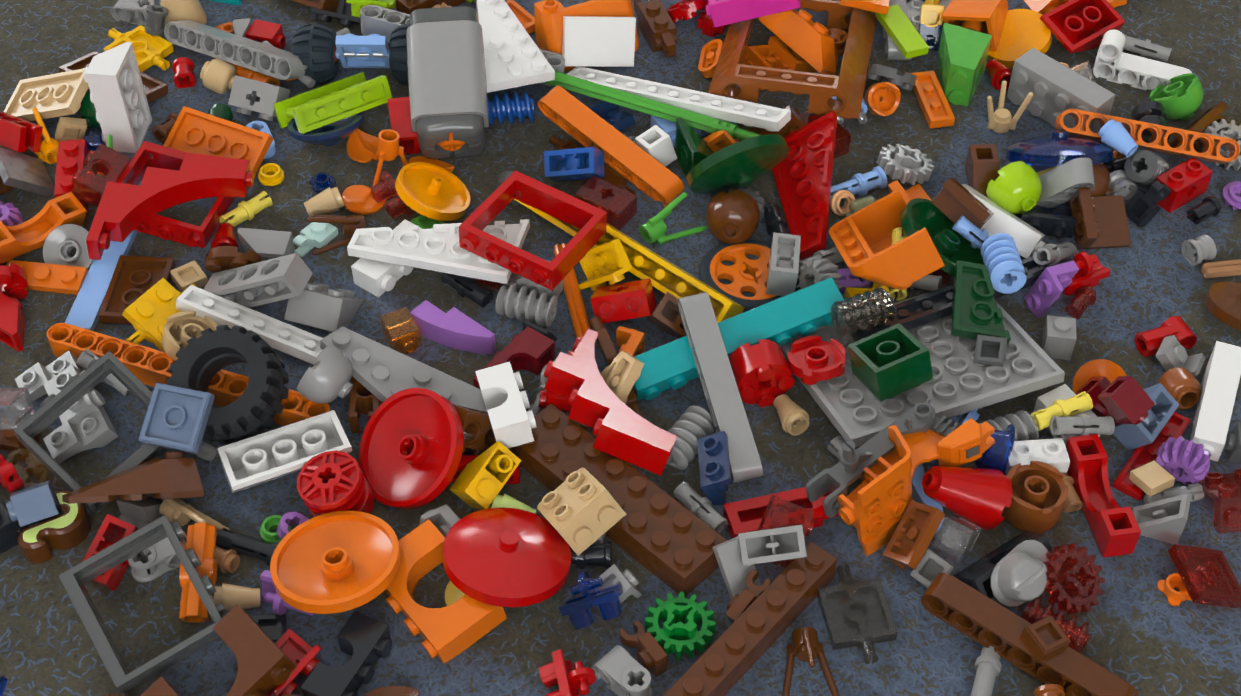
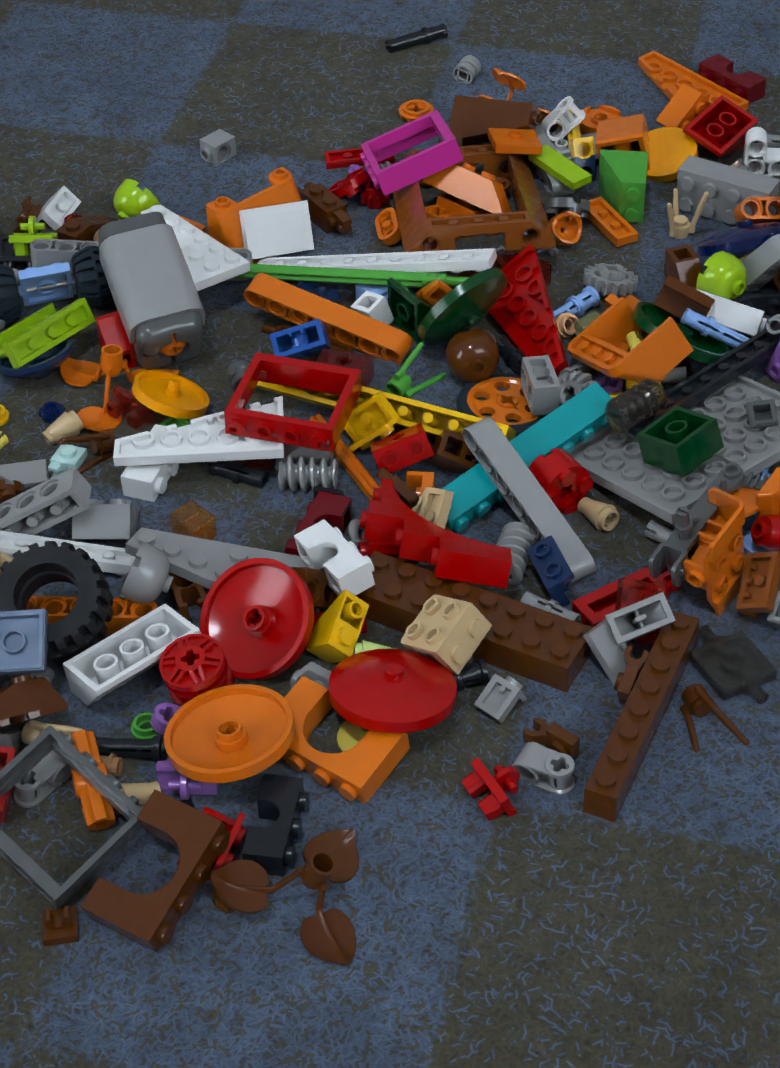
camera: 15 degrees left, 5 degrees down
(453, 329) = (247, 511): medium lavender slope -> none
(510, 108) = (219, 304): blue piece -> none
(579, 607) = (476, 720): clear blue hips -> none
(680, 625) = (578, 711): green gear -> none
(829, 361) = (607, 457): red plate -> none
(974, 303) = (730, 378): dark green wing -> none
(998, 73) = (661, 188): red cone -> none
(1003, 263) = (743, 339): light blue piece -> none

